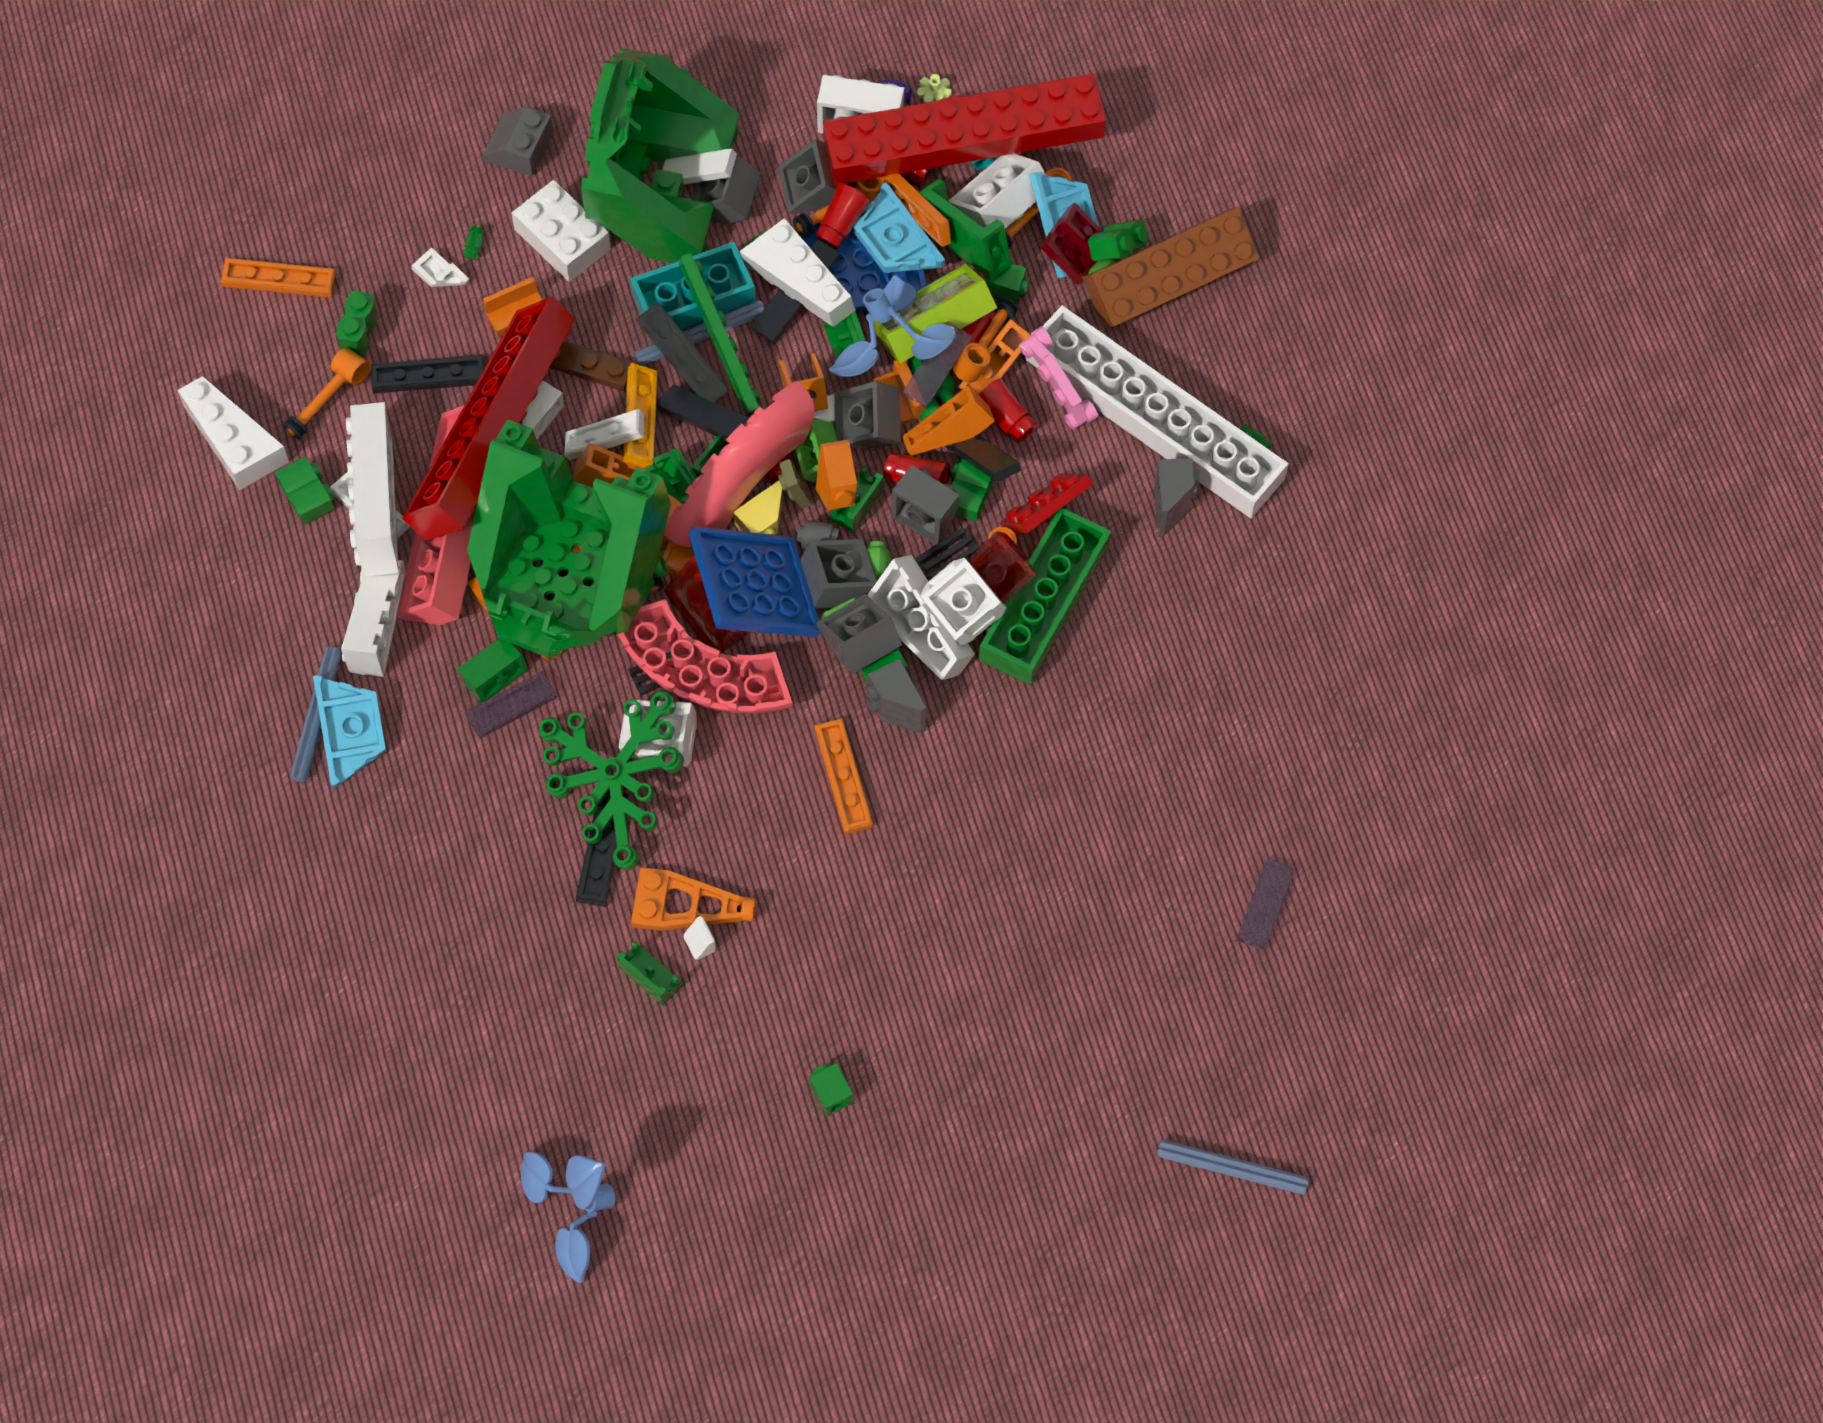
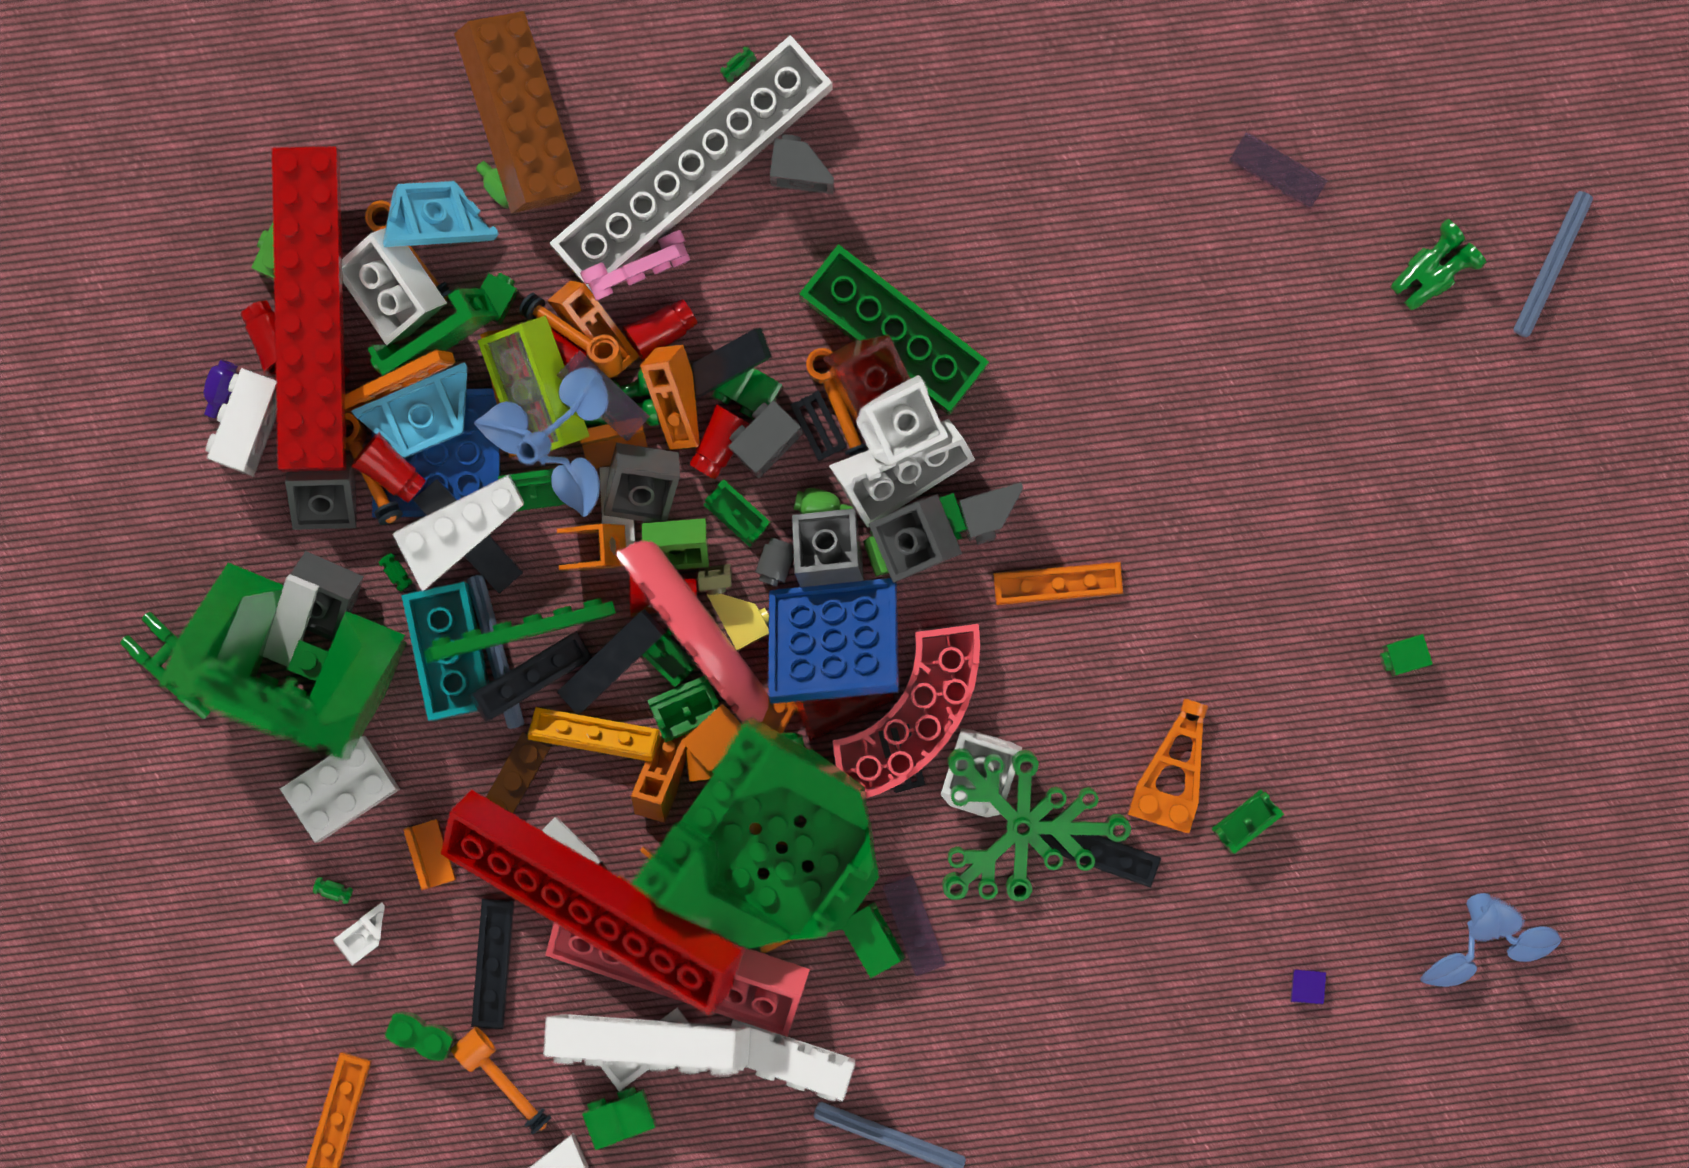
camera: 75 degrees left, 20 degrees up
(349, 727) = (914, 1103): medium azure wing -> none
(503, 1054) = (1308, 986): none -> dark purple tile
(519, 140) = (207, 822): dark grey slope -> none
(605, 433) = (614, 778): white tile -> none
(700, 939) = (1218, 764): white slope -> none
(836, 475) = (723, 530): orange slope -> none
(934, 88) = (229, 336): yellowish green plant -> none
(1045, 503) = (785, 308): red plate -> none
(1069, 243) = (465, 211): dark red slope -> none
(1118, 240) = (473, 163): green brick -> none
(1199, 1050) = (1430, 273): none -> green piece

